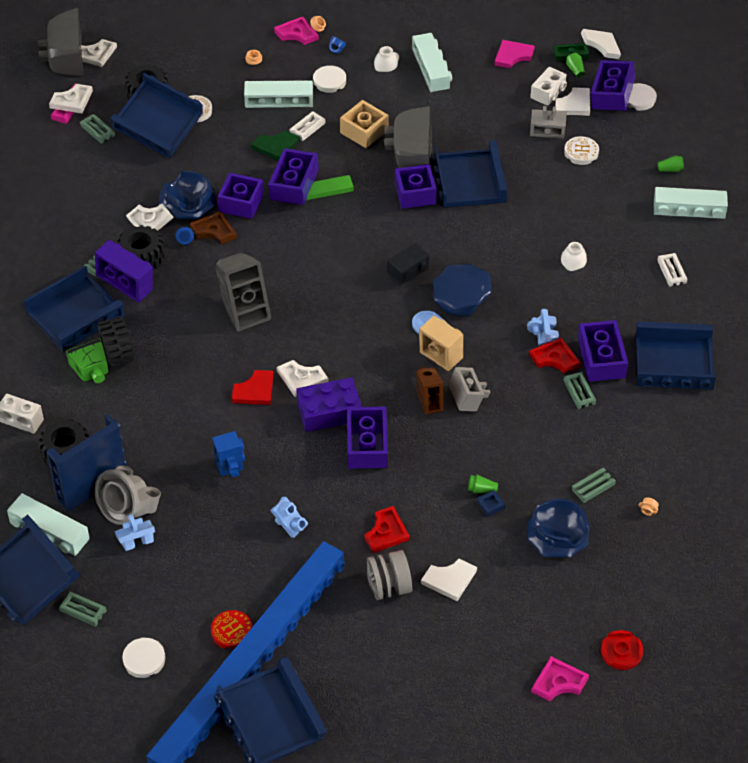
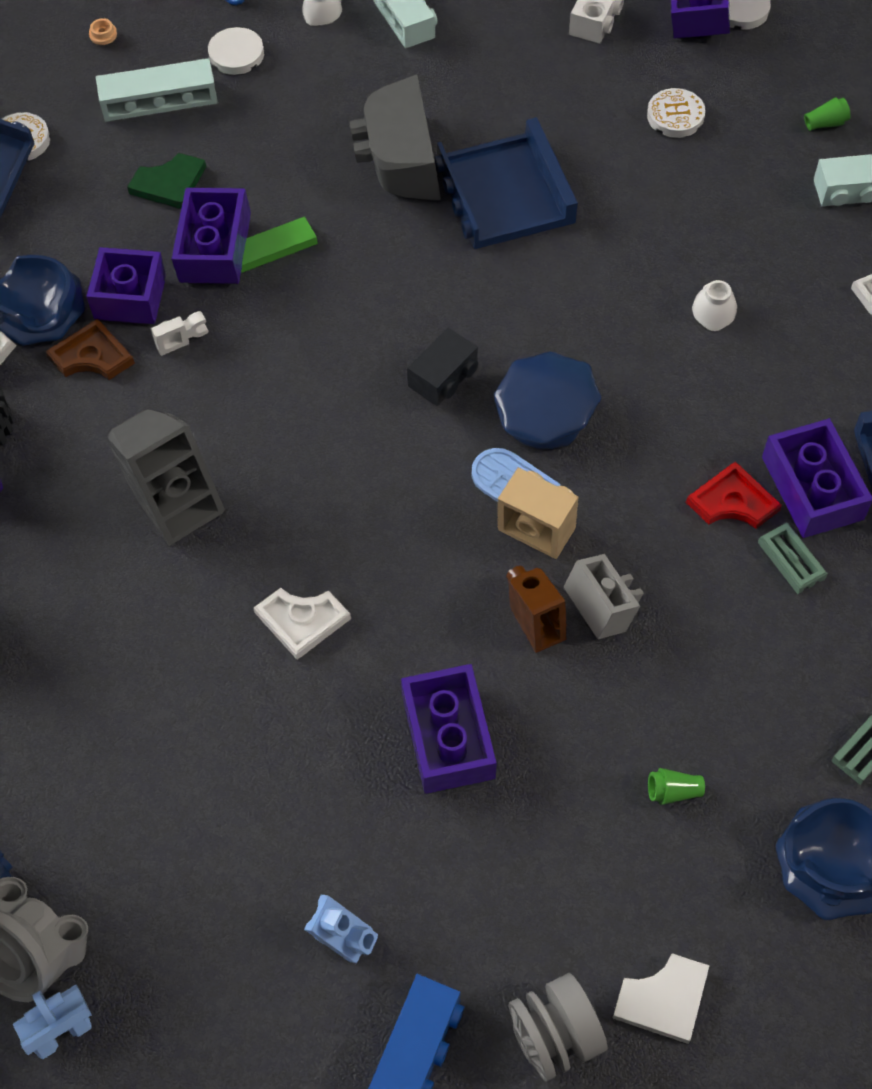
camera: 10 degrees left, 10 degrees up
(184, 235) = (42, 376): blue tile -> none
(228, 453) = (202, 815): blue brick -> none
(255, 390) = (224, 661): red tile -> none
(262, 224) = (175, 333): none -> white plate
(310, 127) = (220, 140): white tile -> none
(326, 403) = (361, 669): dark purple brick -> none
(364, 123) = (311, 121): tan brick -> none
(387, 531) = (526, 915): red tile -> none
(415, 186) = (422, 220): dark purple brick -> none
(491, 503) = (700, 821): dark blue plate -> none
(542, 327) = (699, 448): light blue hips -> none
(548, 123) = (612, 74): light grey brick -> none
(575, 103) = (643, 33): white tile -> none

